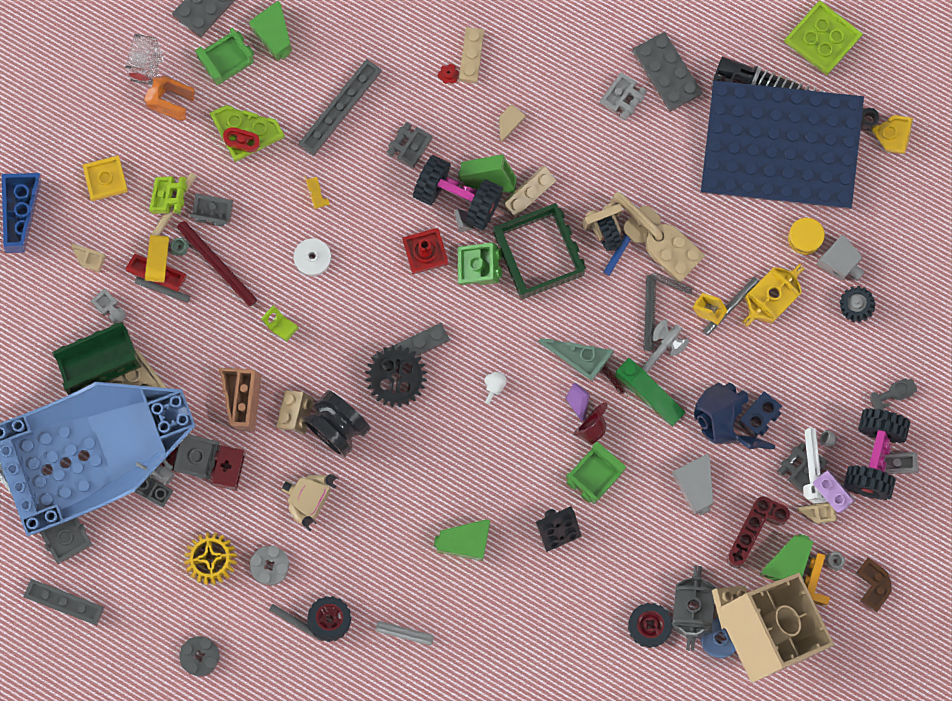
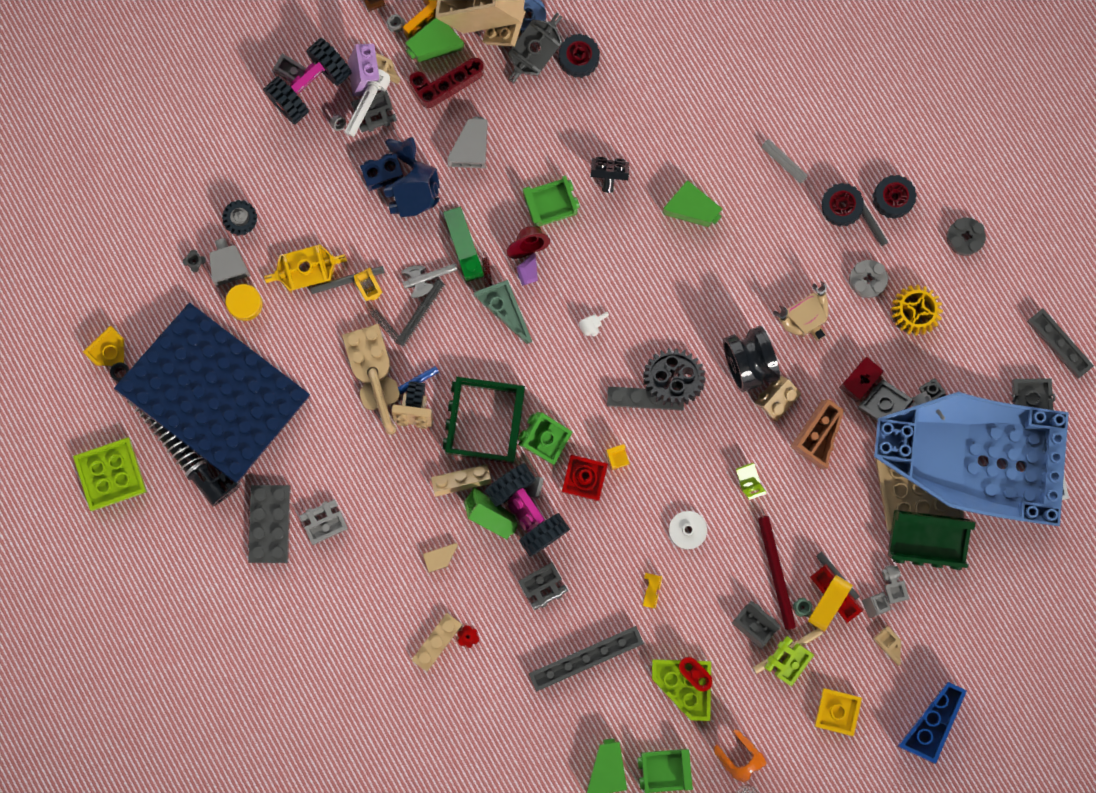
camera: 155 degrees left, 5 degrees up
(116, 284) = (876, 605): none -> light grey slope
(277, 646) = (905, 196): none -> black wheel
(407, 282) = (617, 457): none -> yellow panel
(876, 244) = (188, 261): none -> dark grey plate
(898, 390) = (253, 129): dark grey piece -> none

